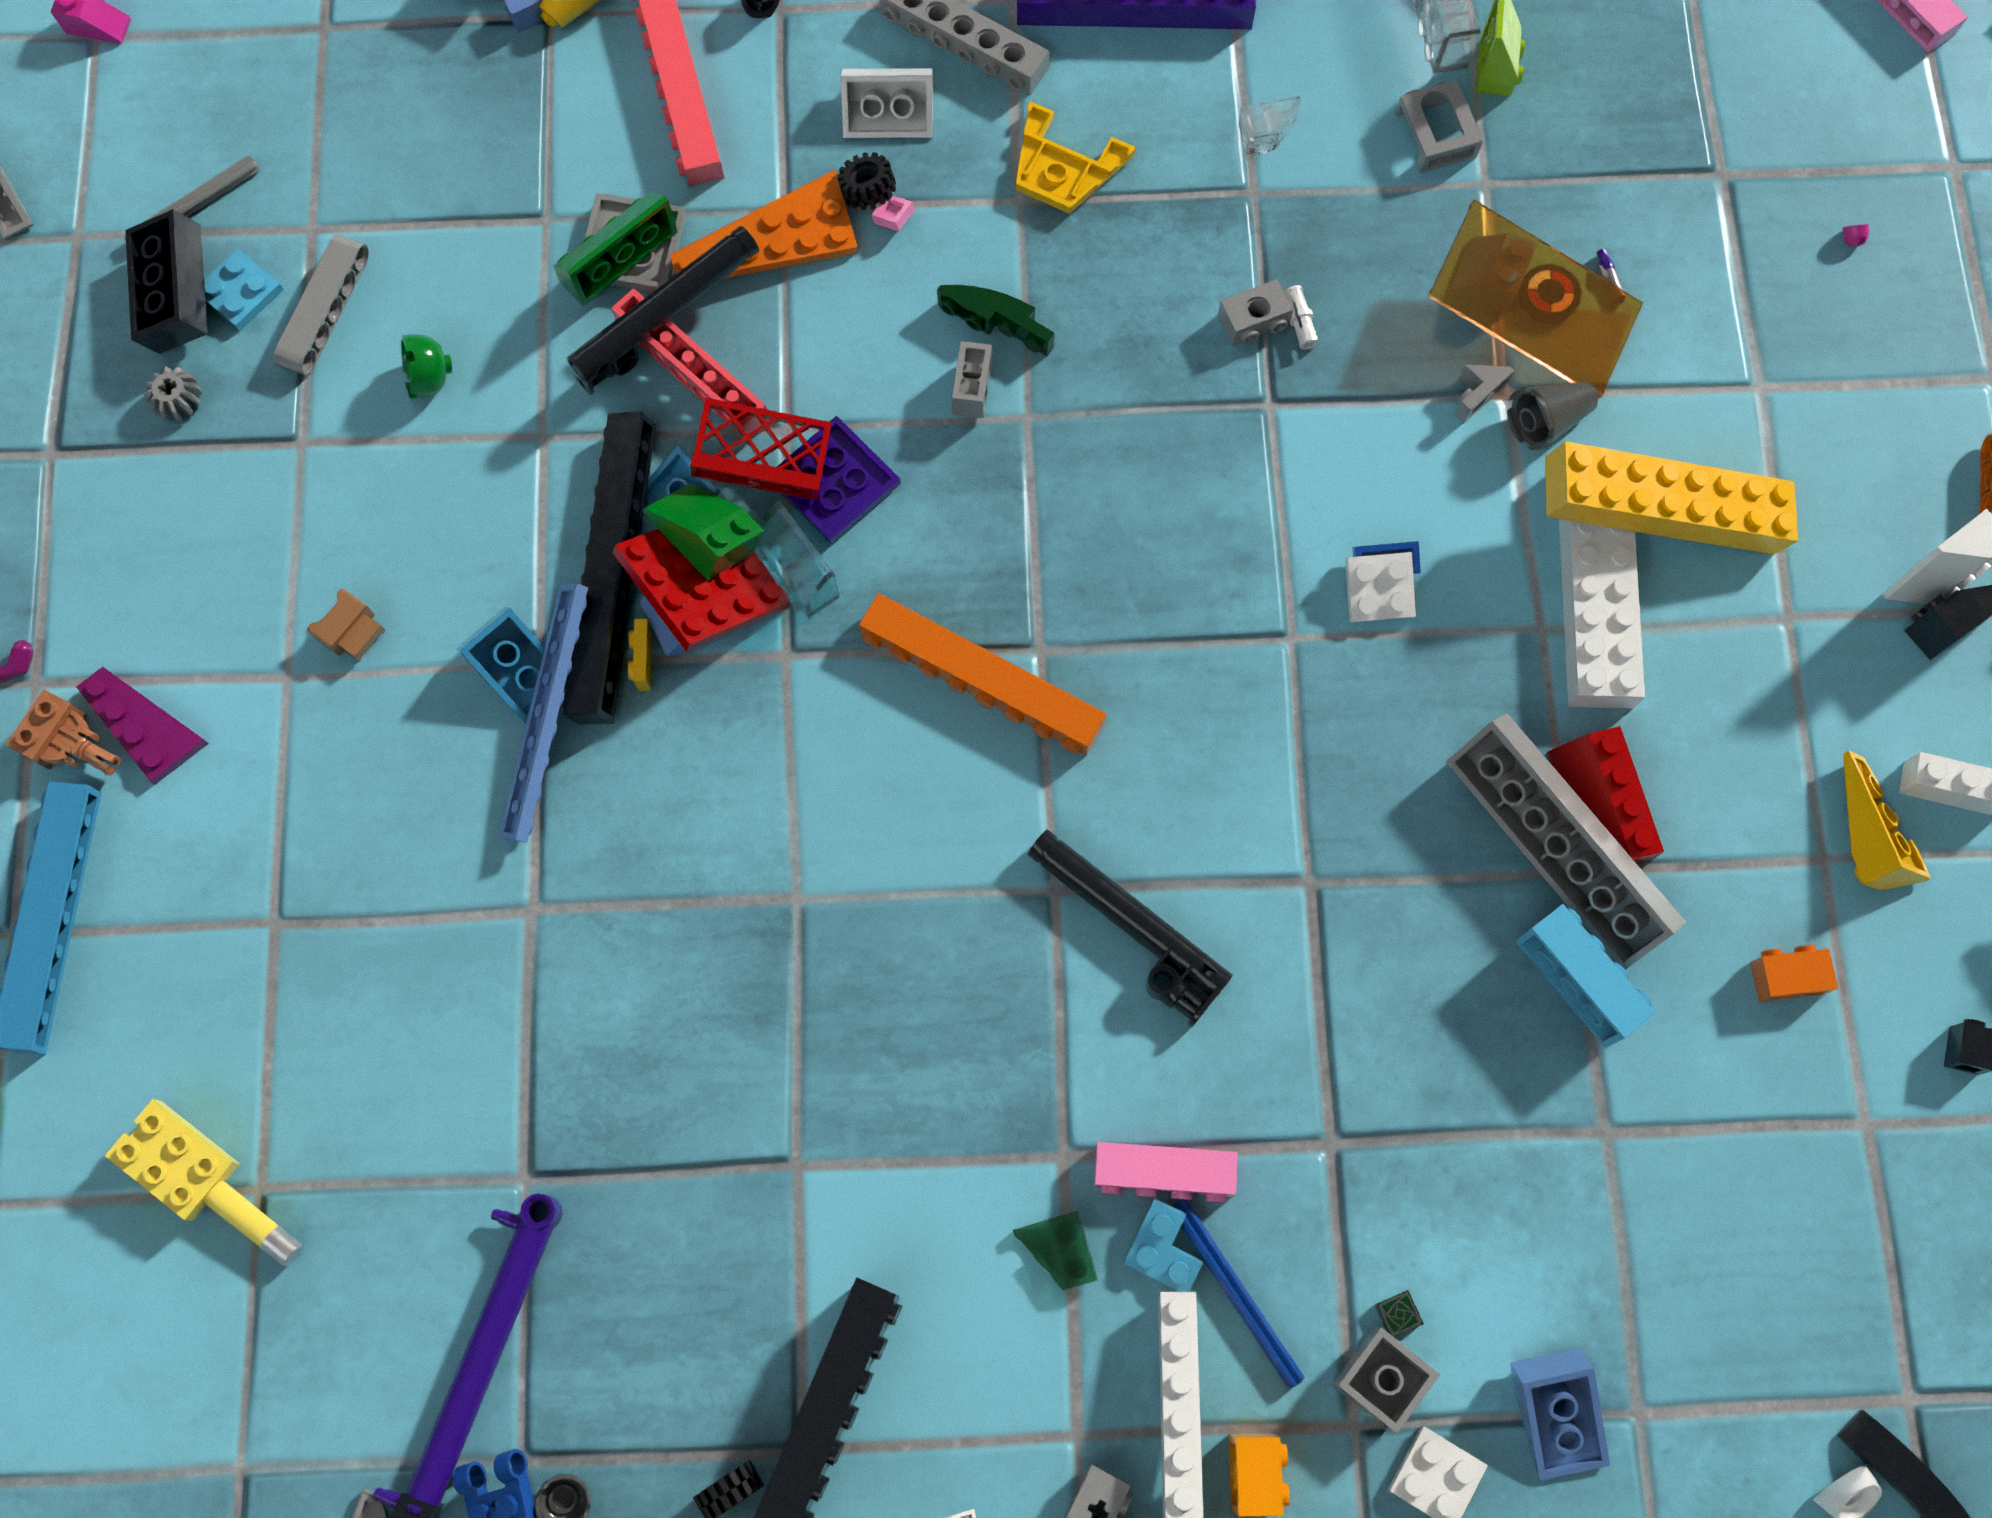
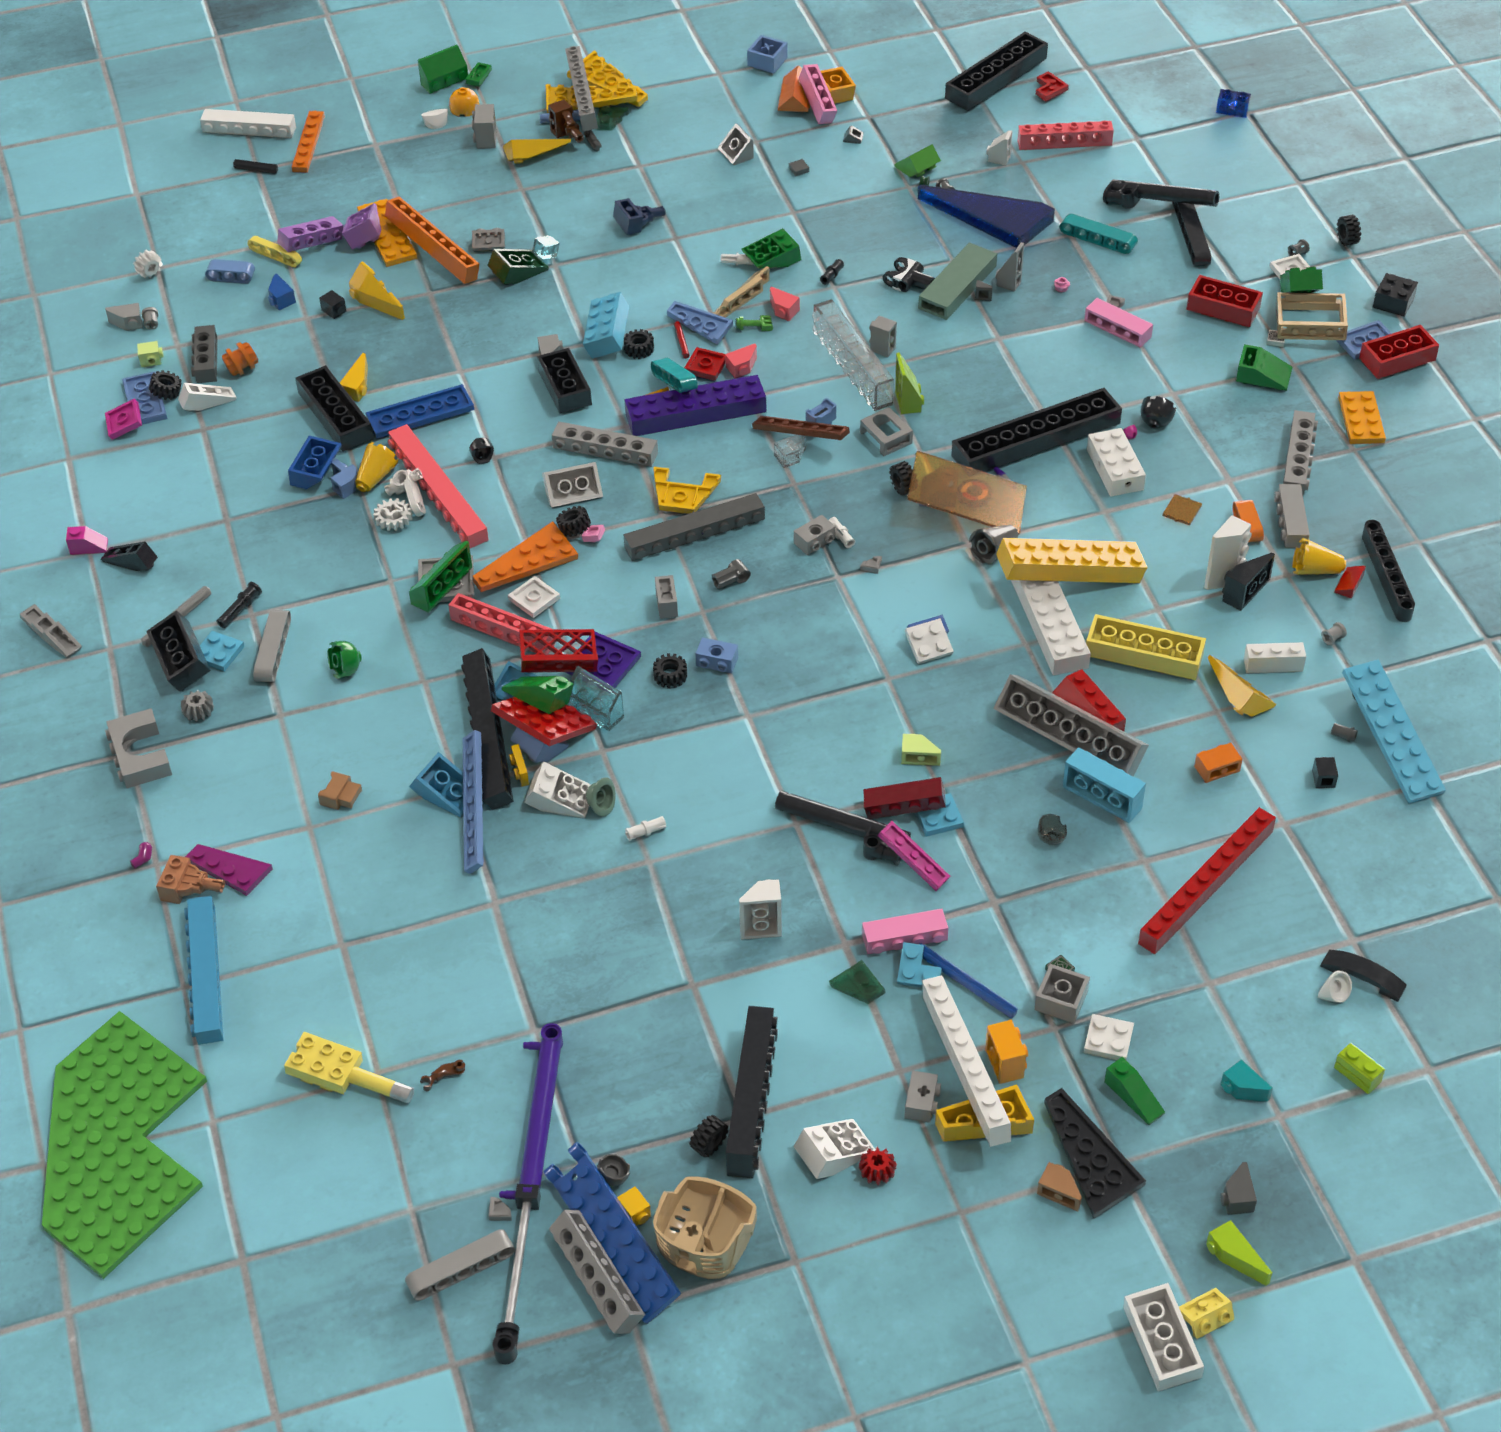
camera: 15 degrees left, 25 degrees down
(41, 420) = (136, 768): none -> light grey arch
(151, 67) = (131, 556): none -> black slope
(303, 198) = (243, 599): none -> black pin
(363, 1220) = (448, 1069): none -> reddish brown arm
(582, 89) = (392, 514): none -> white gear
(615, 349) = (456, 622): black piece -> none
(621, 33) = (407, 482): none -> white piece
(691, 727) = (557, 792): none -> white slope
(752, 759) = (601, 796): none -> sand green hat
(761, 317) = (534, 596): none -> white plate
(807, 837) = (645, 828): none -> white pin
(937, 510) = (670, 662): none -> black tyre
(939, 1078) = (761, 911): none -> white slope
(982, 674) = (719, 730): orange brick -> none
(987, 308) = (669, 564): dark green slope -> none
(1015, 504) = (716, 655): none -> medium blue brick
(1062, 243) = (694, 526): none -> dark grey brick
(1100, 356) = (735, 572): none -> dark grey piece
(1223, 1028) = (914, 855): none -> dark pink tile
(1242, 907) = (904, 798): none -> dark red brick
(1291, 942) = (942, 819): none -> medium azure plate
(1296, 88) = (801, 427): none -> copper tile
(1296, 807) = (919, 751): none -> yellowish green slope
(1333, 396) = (871, 565): none -> light grey tile
(1336, 70) = (822, 413): none -> medium blue piece
(1435, 235) = (901, 477): none -> black tyre
(1469, 1036) = (1051, 829): none -> clear smoke hair
(1483, 385) = (952, 540): light grey slope -> none
(1561, 1413) = (1165, 988): medium blue slope -> none
(1695, 196) = (1037, 431): none -> black brick
(1700, 1215) = (1206, 880): none -> red brick
(1745, 704) = (1145, 647): none -> light yellow brick
(1812, 294) = (1116, 462): none -> white brick
(1895, 419) = (1182, 509): none -> clear orange piece
(1916, 208) = (1157, 411): none -> black cylinder

